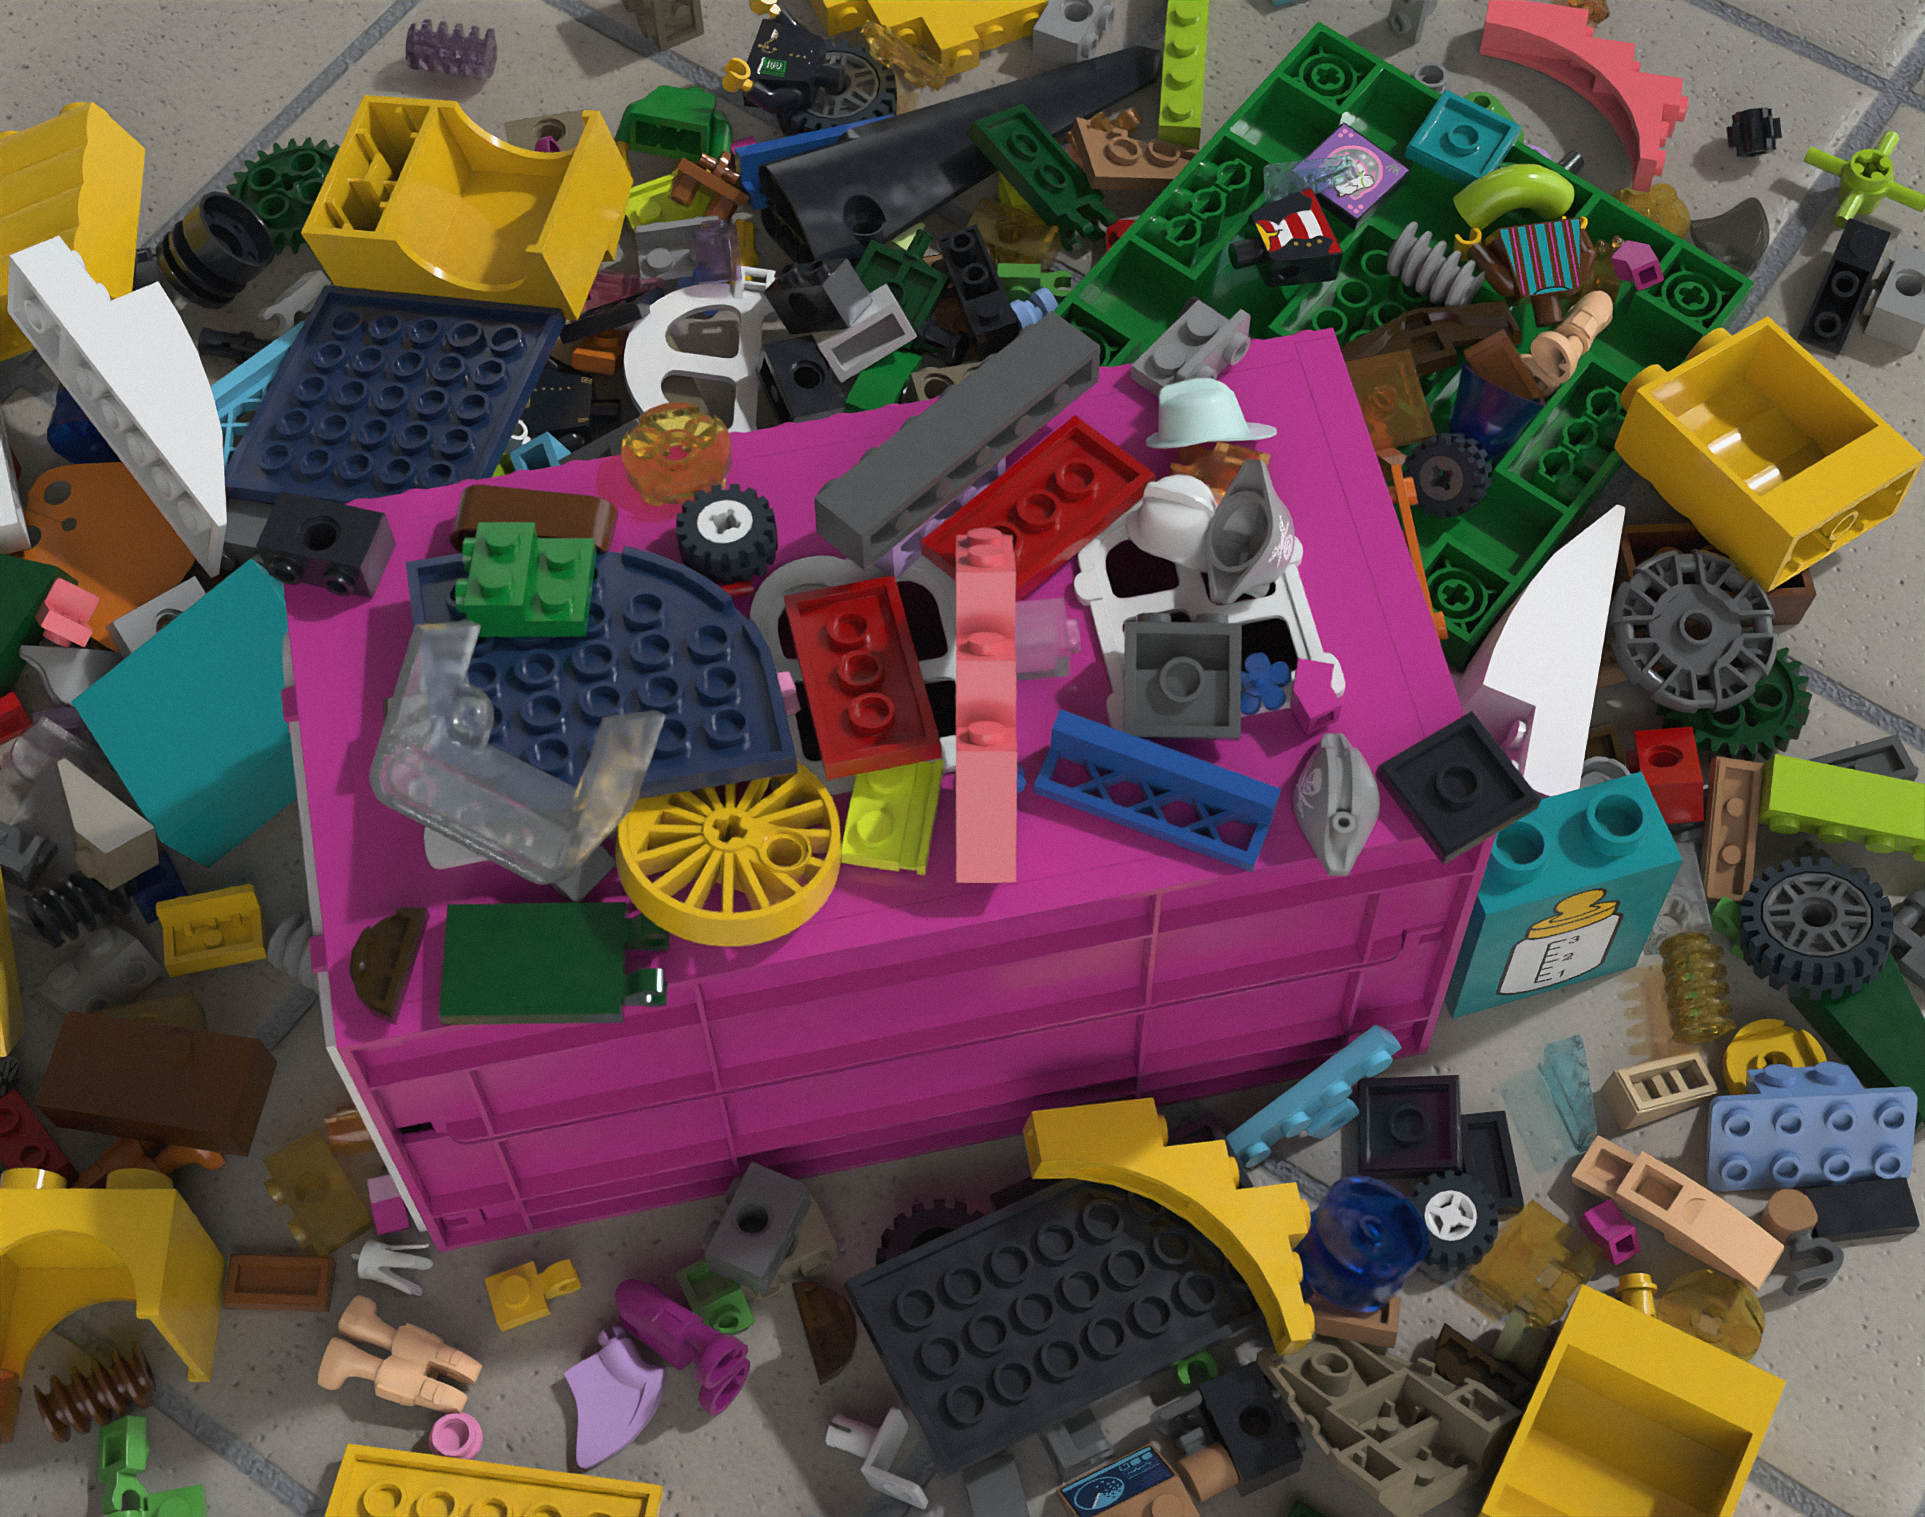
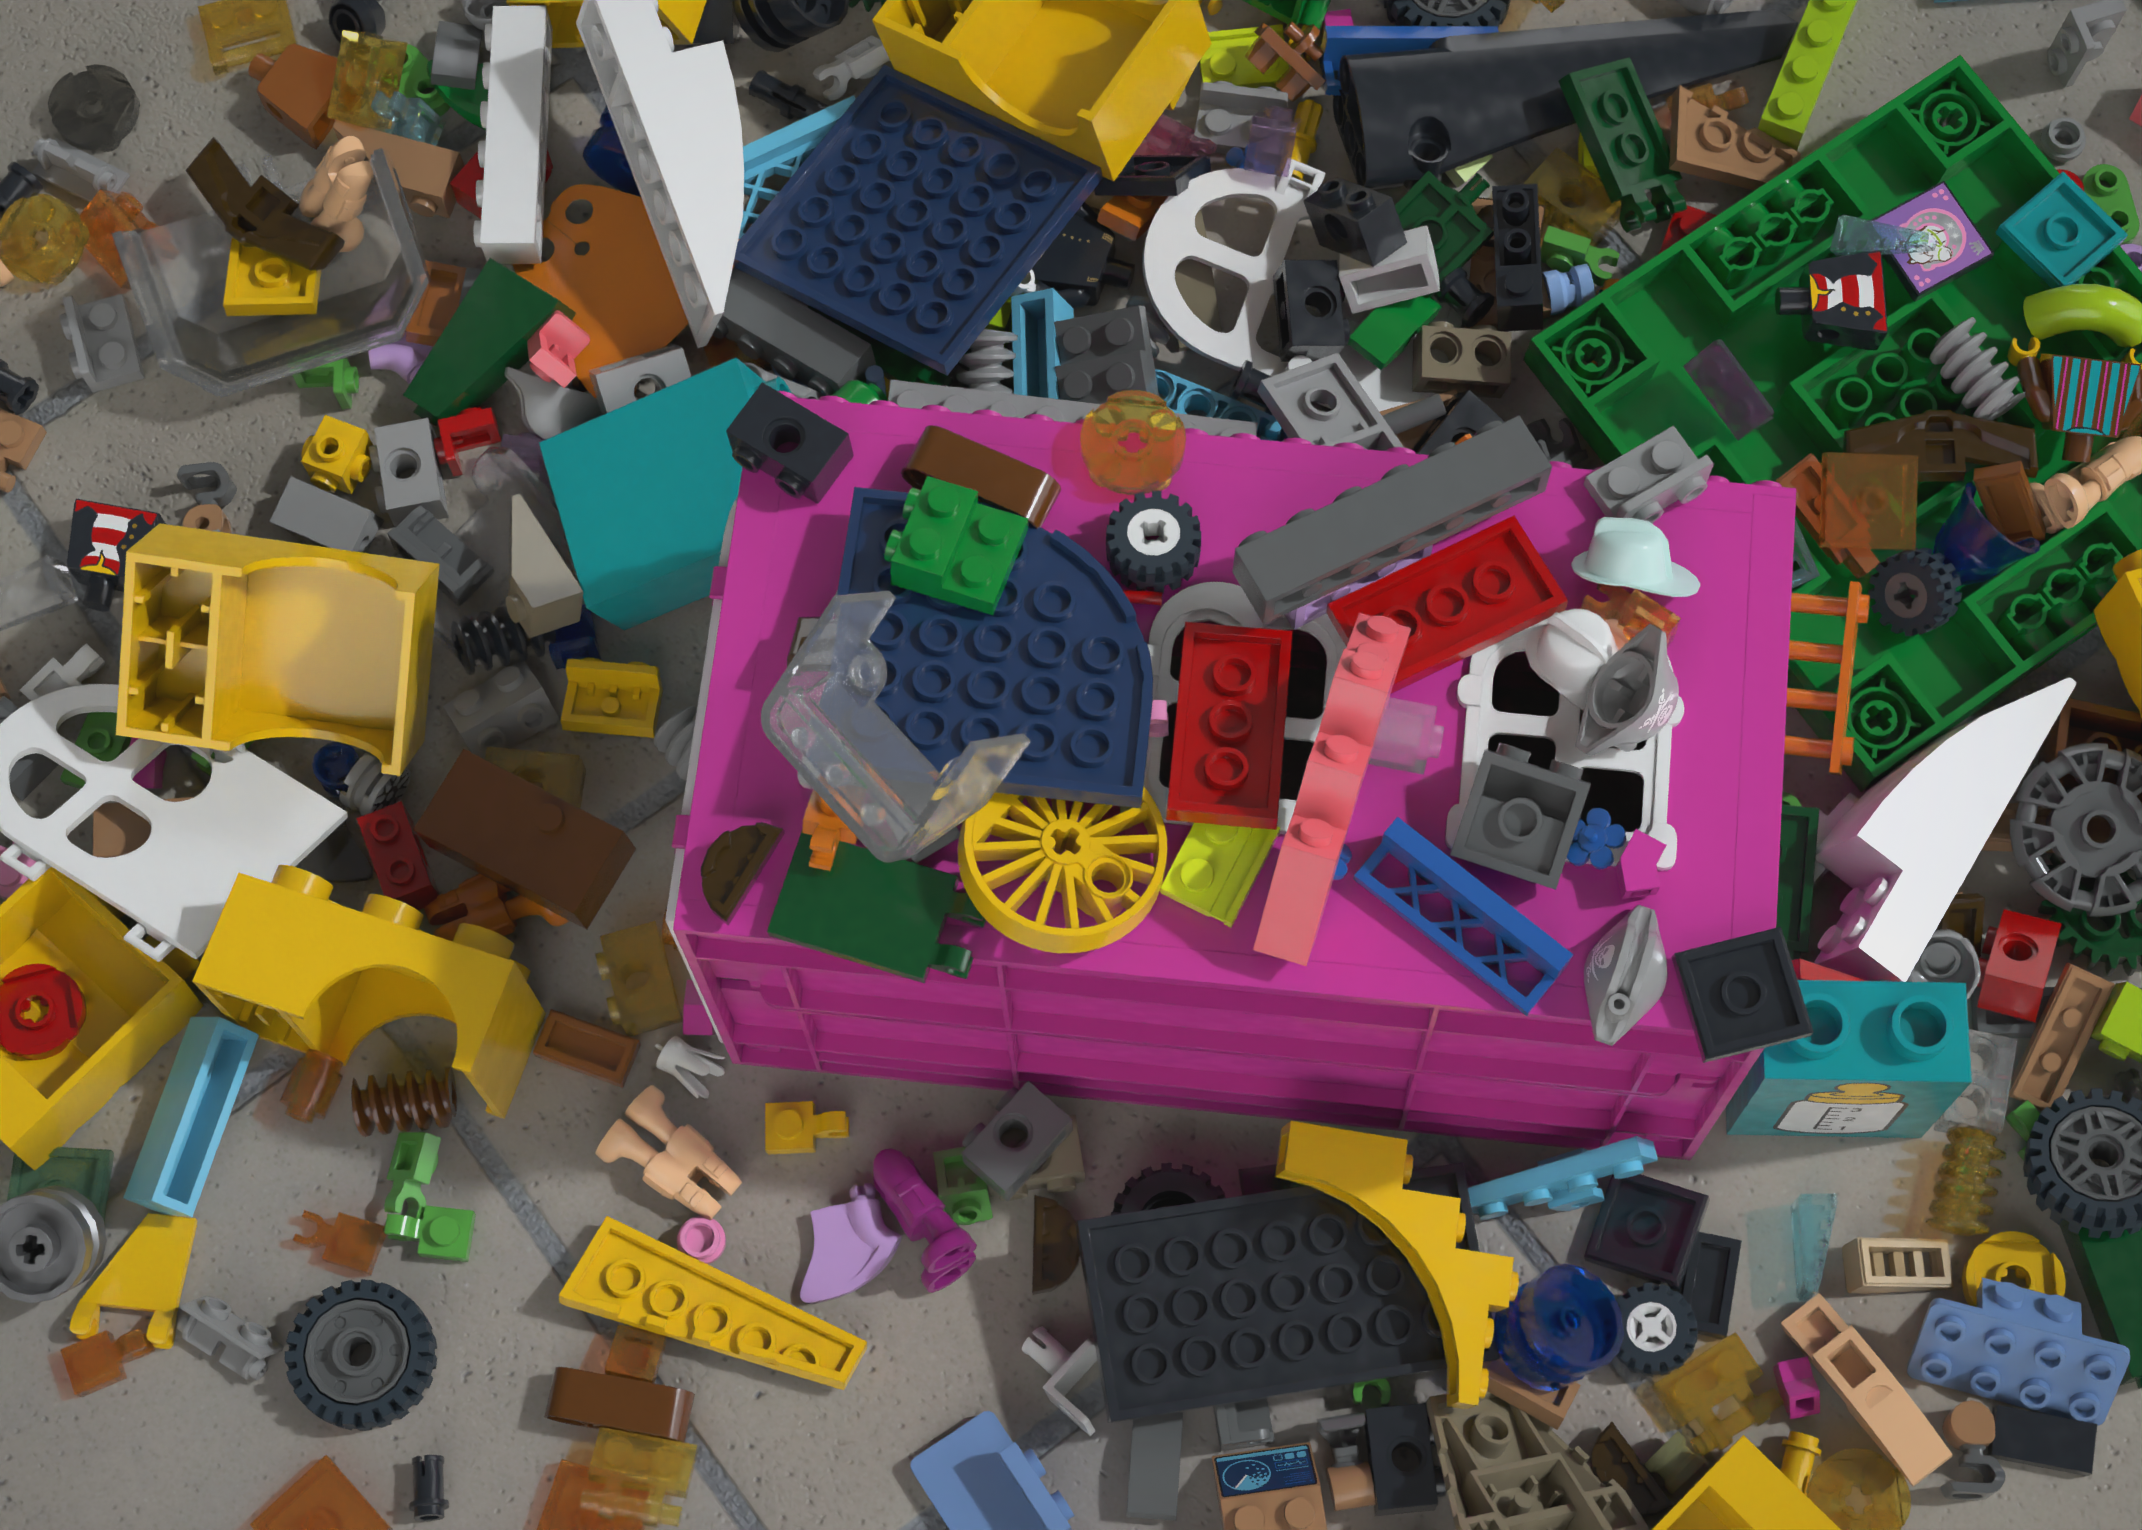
camera: 20 degrees right, 10 degrees up
(473, 886) = (826, 832): none -> orange plate

